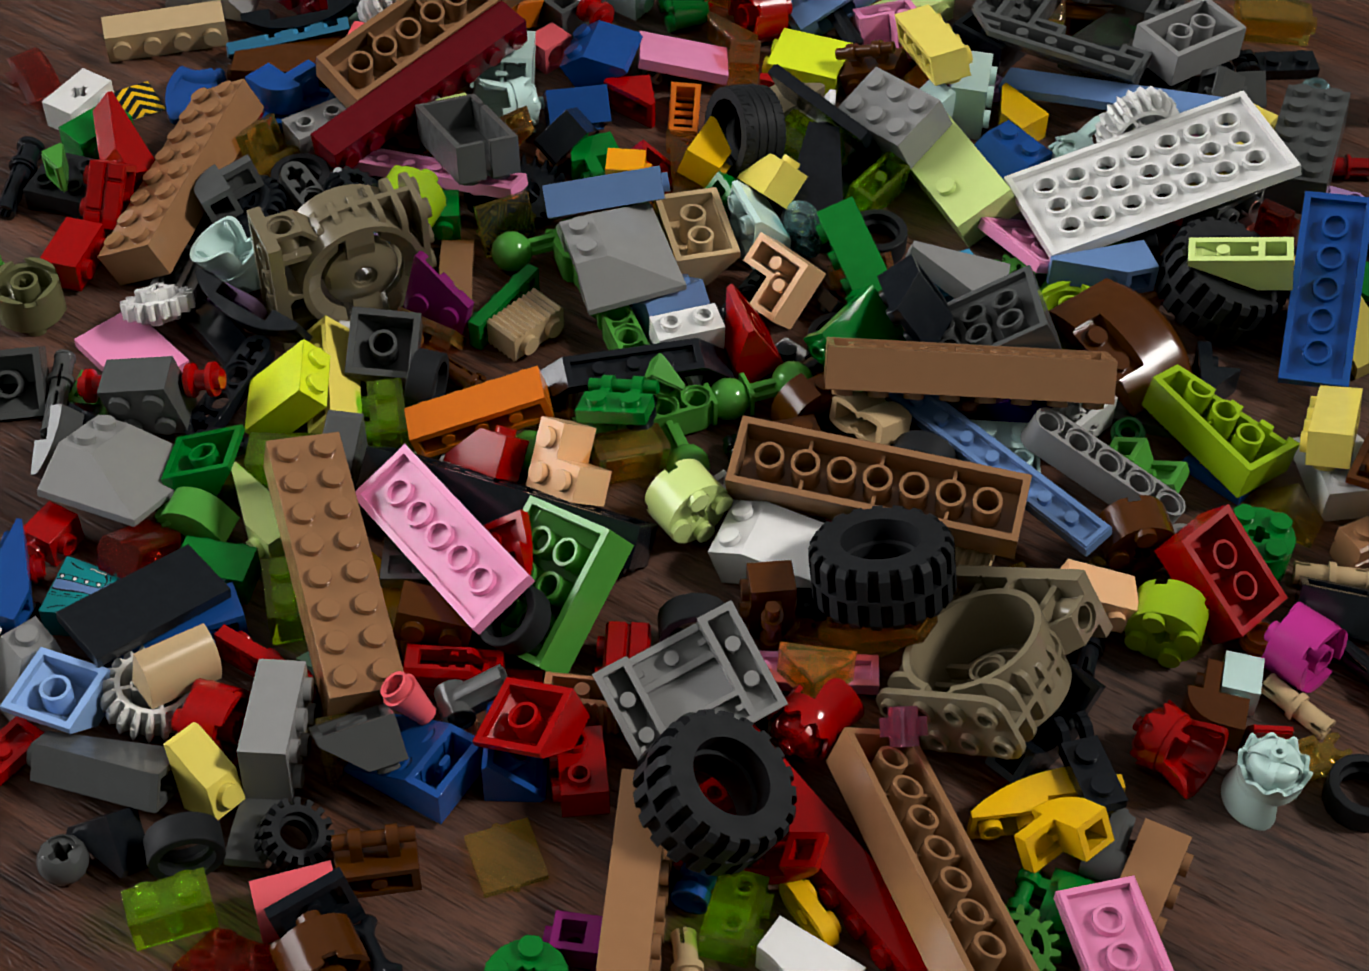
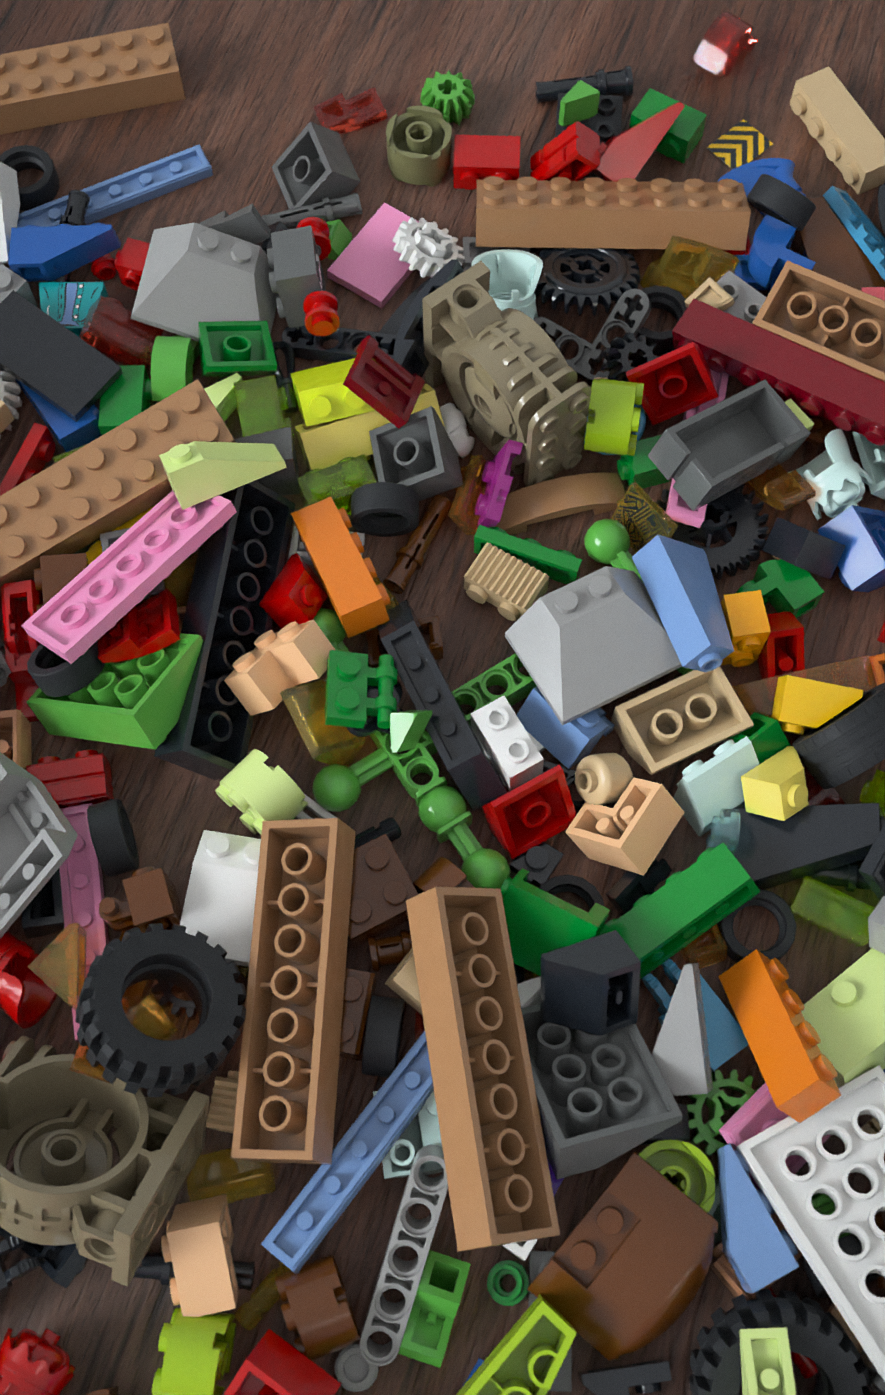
camera: 80 degrees right, 20 degrees up
(75, 97) = (709, 93): white brick -> none
(222, 187) = (586, 246): dark grey brick -> none
(240, 60) = (781, 201): none -> black tyre
(301, 132) = (712, 295): none -> tan tile
(316, 328) = (383, 383): none -> dark red plate
(365, 453) = (212, 468): none -> yellowish green slope
(383, 149) = (674, 383): none -> red slope
(731, 273) = (602, 778): none -> tan head
(976, 217) = (780, 1036): none -> orange brick

